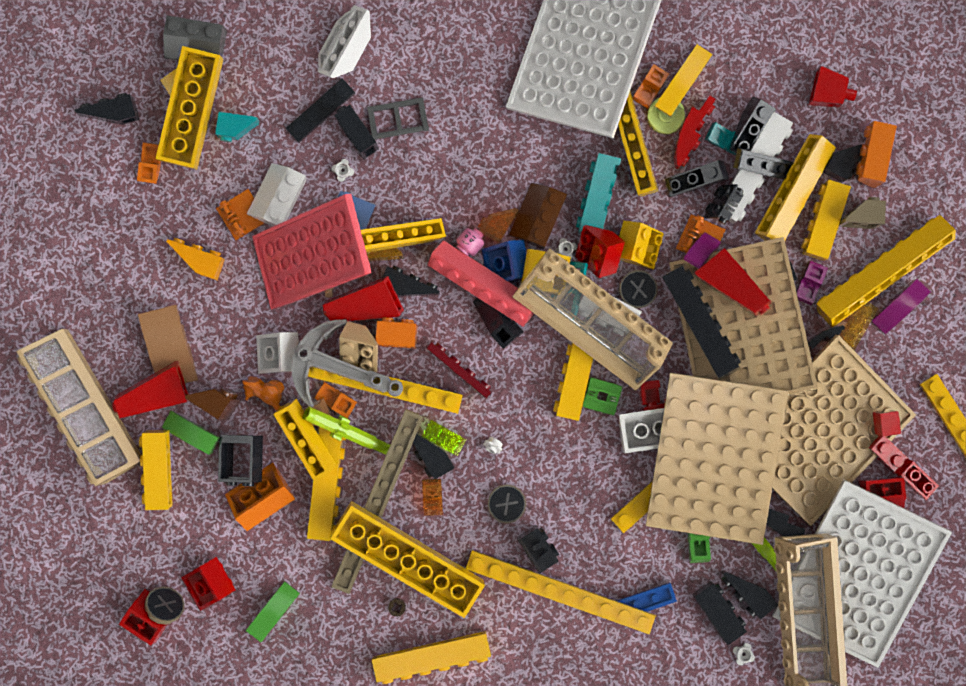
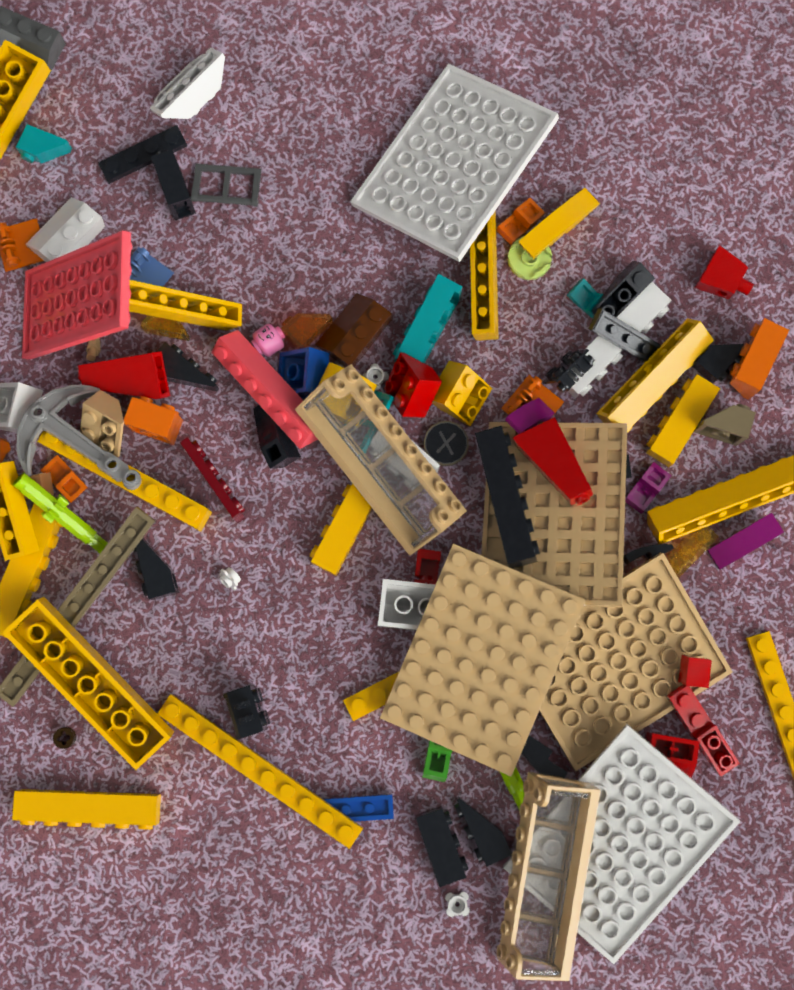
camera: 15 degrees right, 5 degrees down
(342, 165) = (148, 219): white plate -> none
(432, 497) = (142, 619): clear orange slope -> none
(444, 438) = (175, 554): clear neon green slope -> none
(506, 503) = (226, 650): black tile -> none
(613, 393) = (378, 566): bright green piece -> none
(688, 137) = (548, 286): red slope -> none
(697, 178) = (547, 335): black slope -> none

